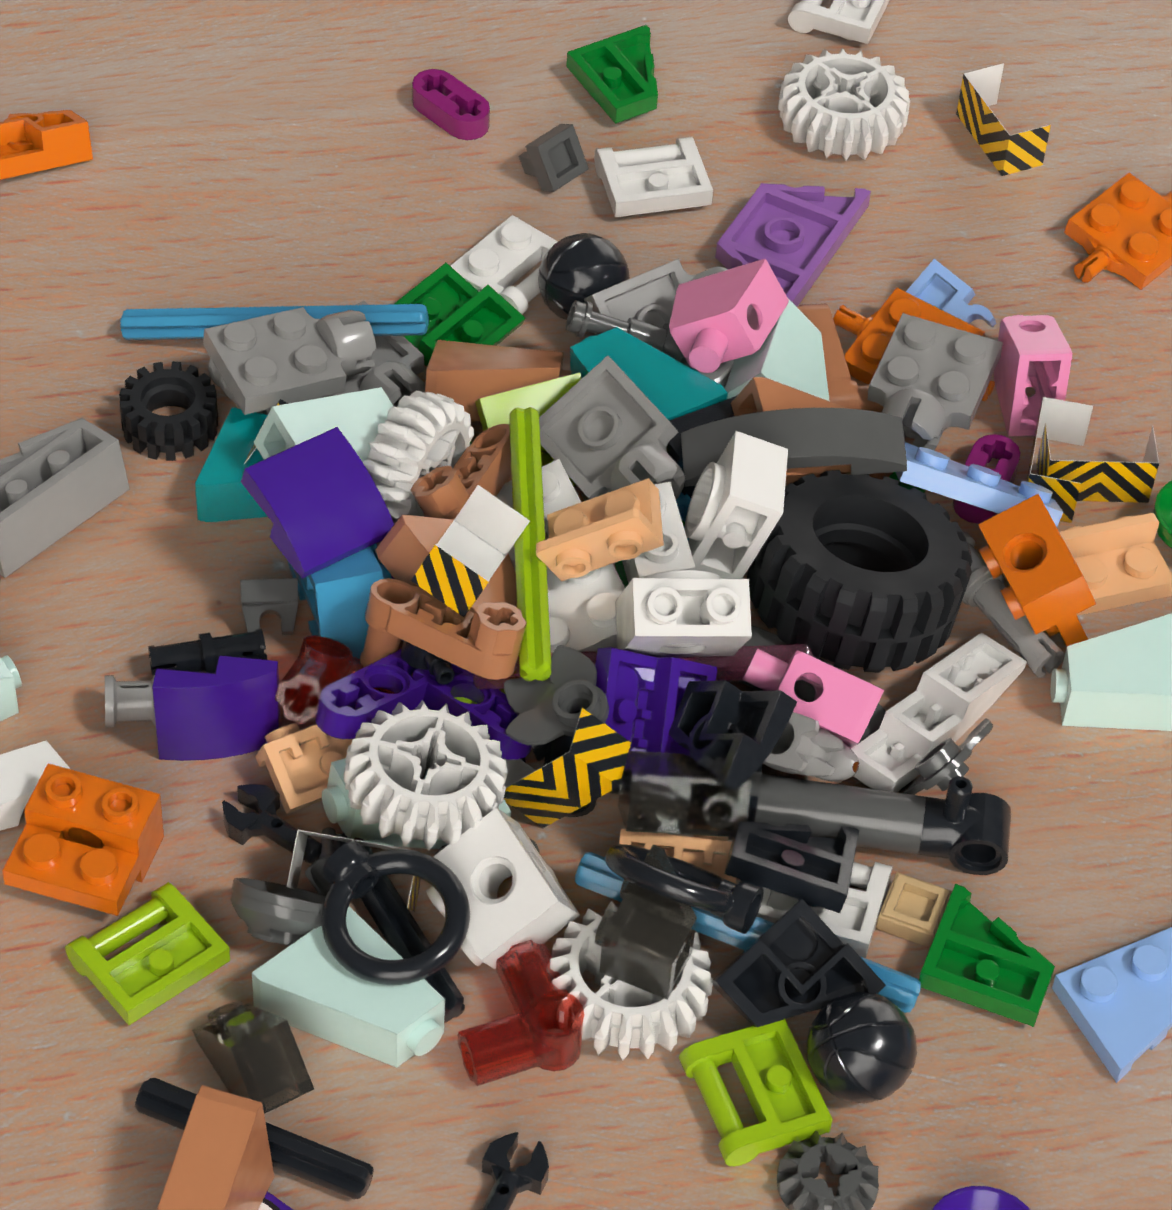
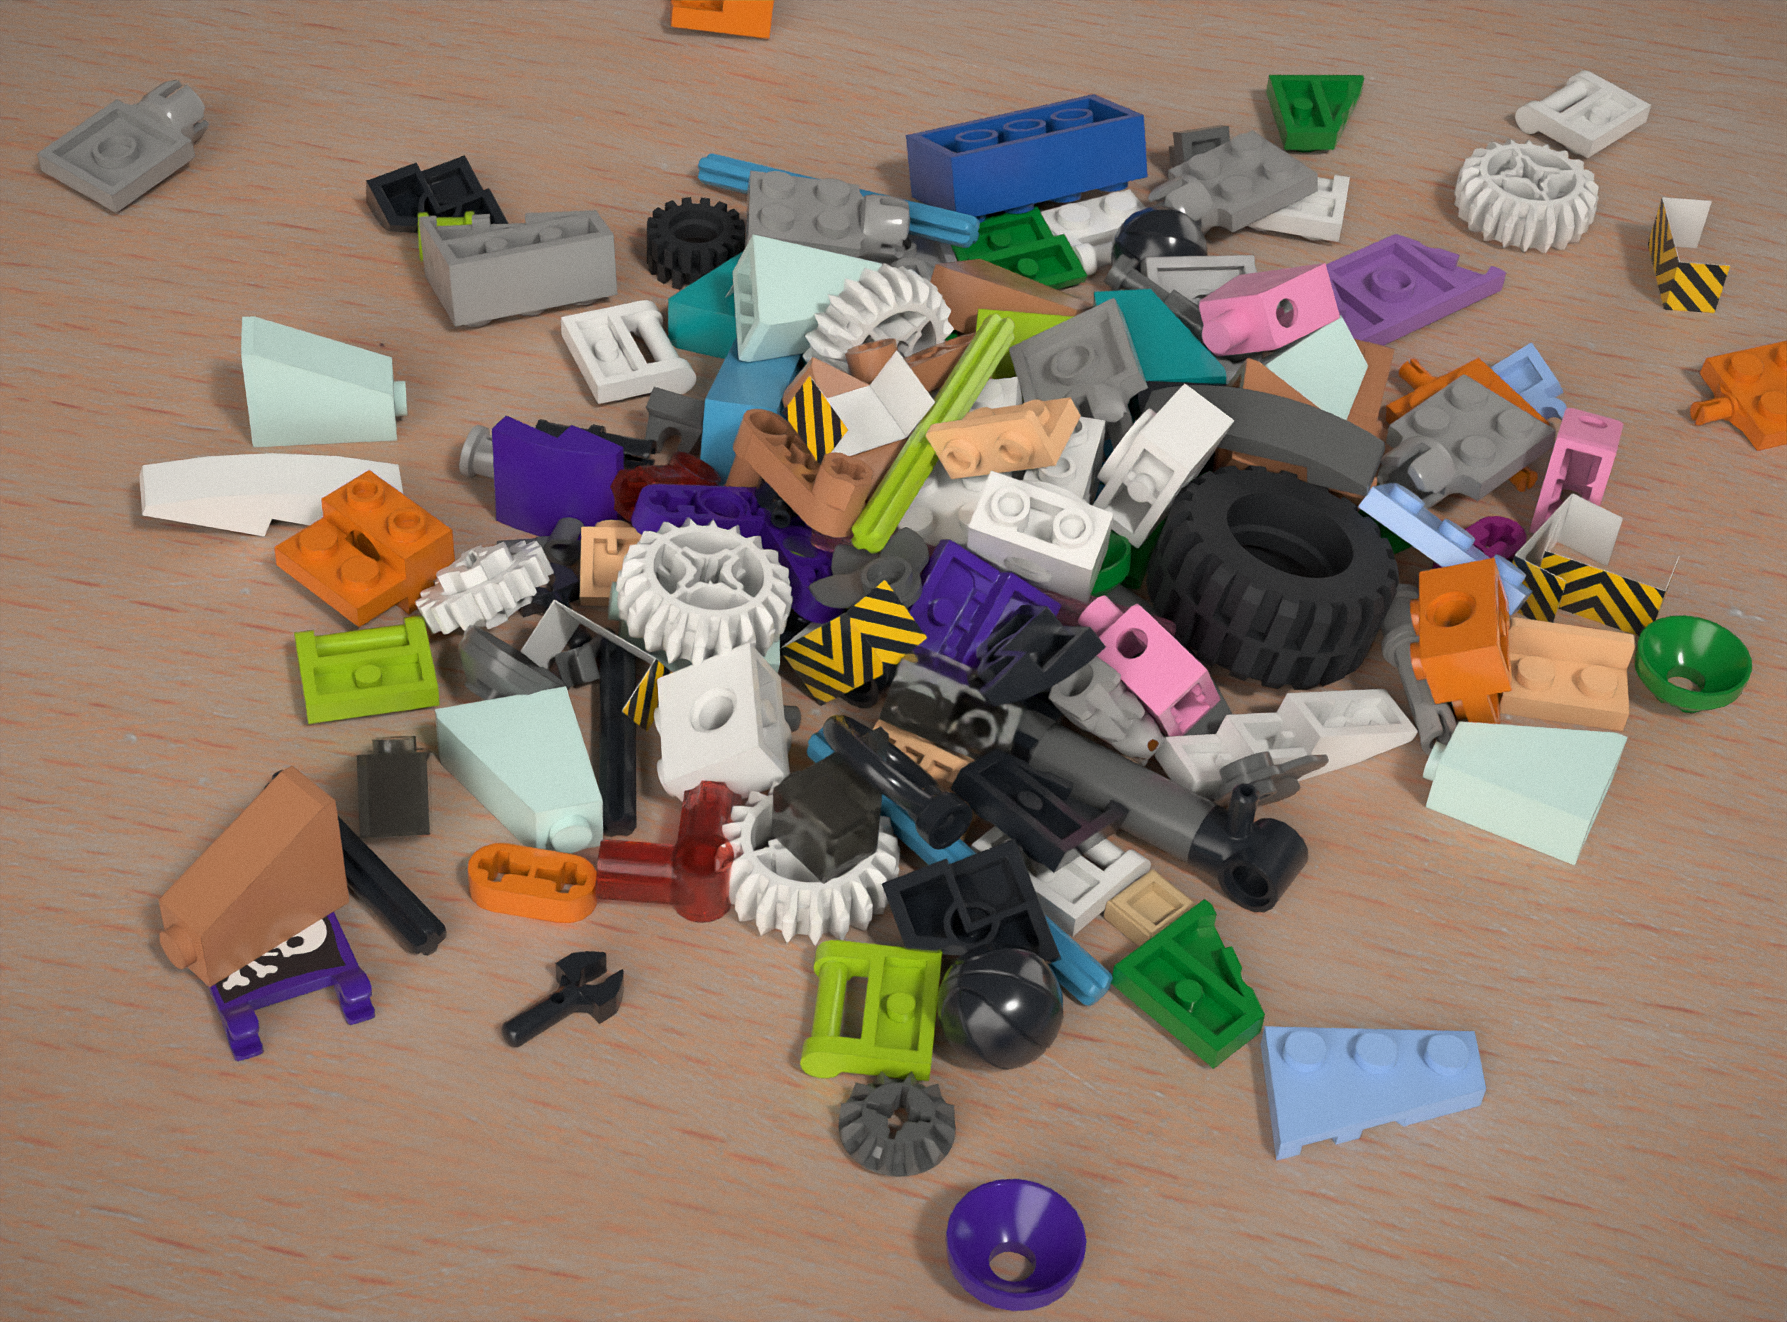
camera: 25 degrees right, 5 degrees down
(168, 558) = (613, 361): none -> white plate
(213, 835) = (484, 586): none -> white gear
(238, 765) = (561, 544): none -> dark grey hand
(319, 502) = (747, 327): dark purple slope -> none
(353, 875) = (583, 657): black piece -> none
(414, 1093) = (532, 883): none -> orange beam
(418, 219) = (1028, 157): none -> blue brick
(450, 104) = (1131, 84): magenta beam -> none
(604, 182) = (1236, 183): none -> light grey plate

